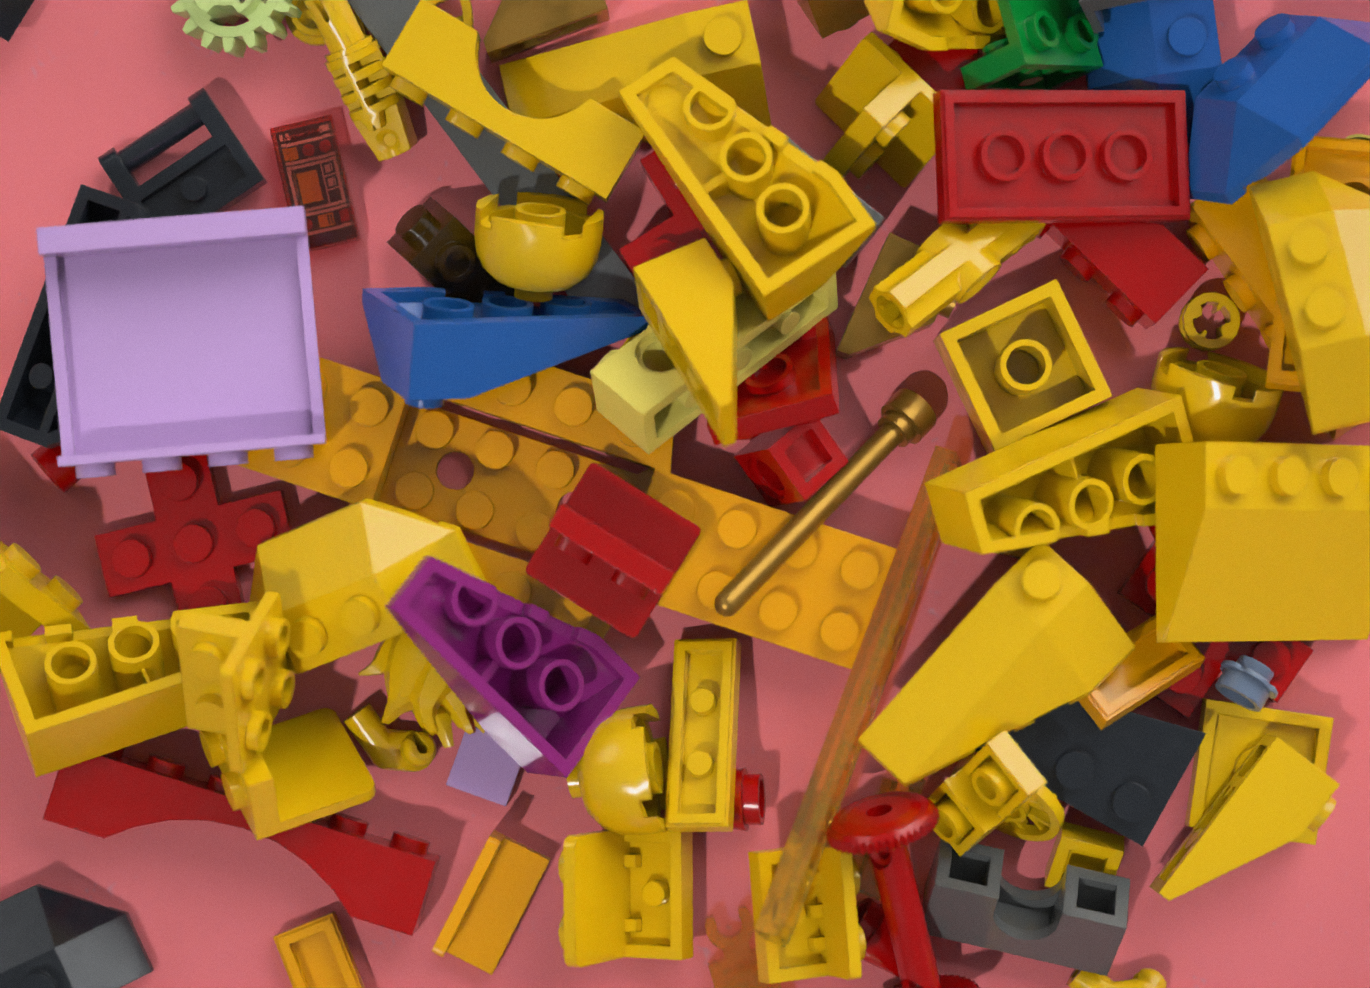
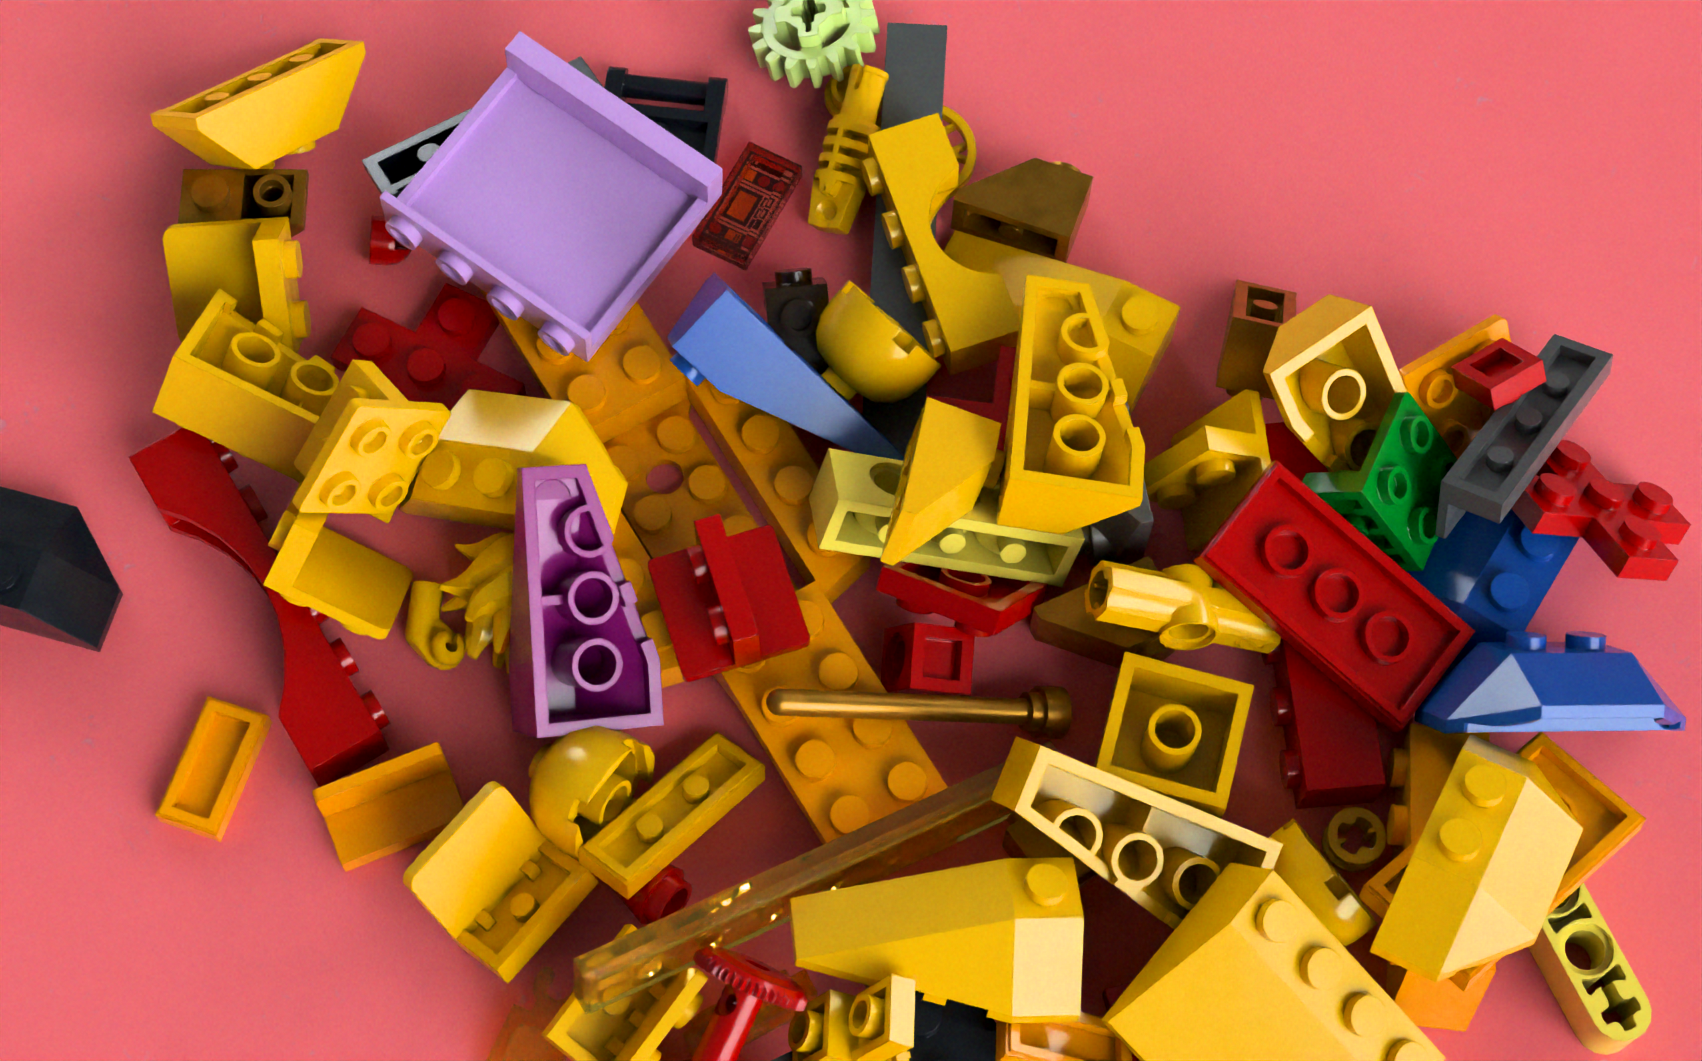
camera: 35 degrees right, 20 degrees down
(483, 769) = (483, 706): lavender tile -> none

